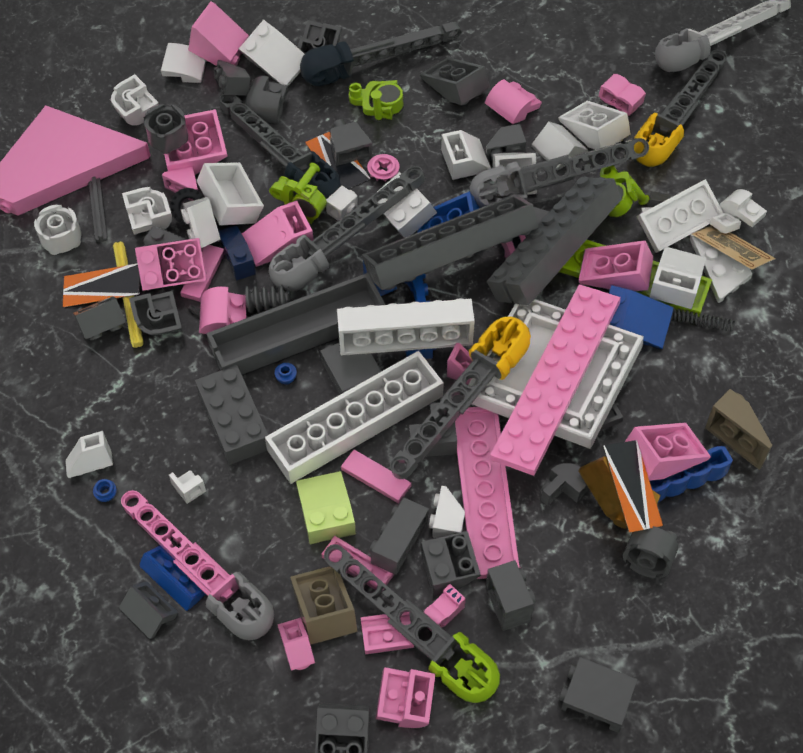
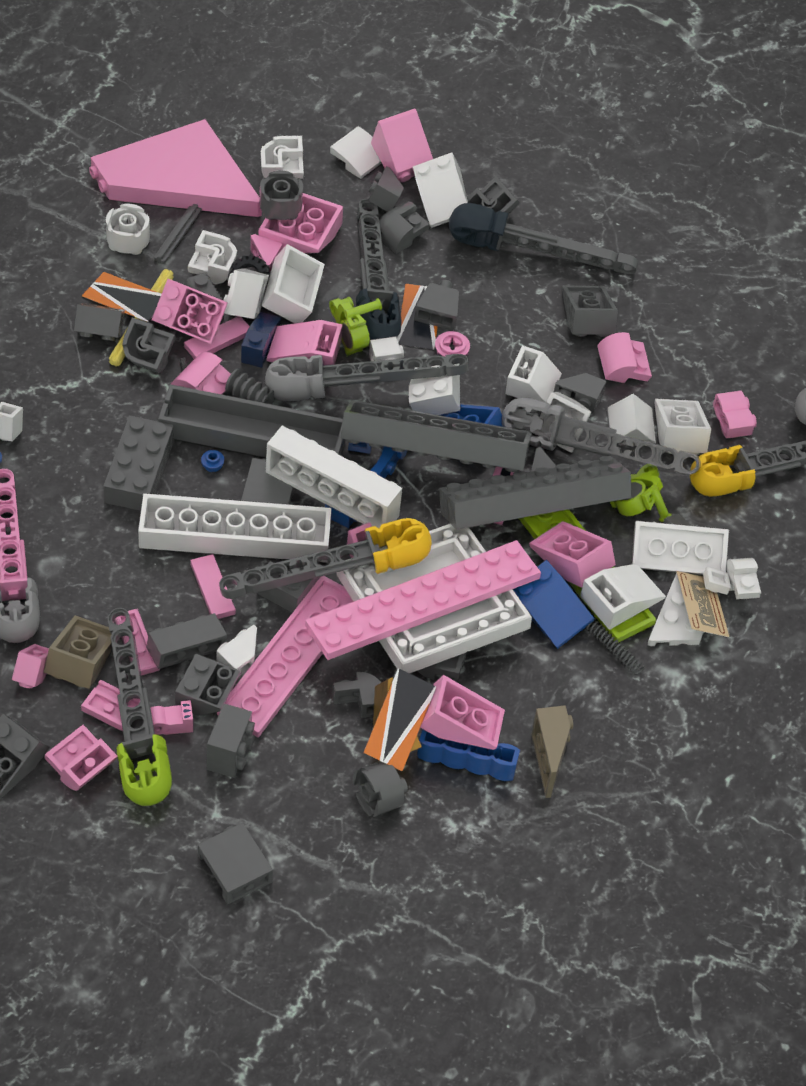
camera: 30 degrees right, 5 degrees down
(188, 485) = (56, 496): white panel -> none
(326, 507) = (148, 583): yellowish green slope -> none
(386, 98) = (503, 285): lime piece -> none

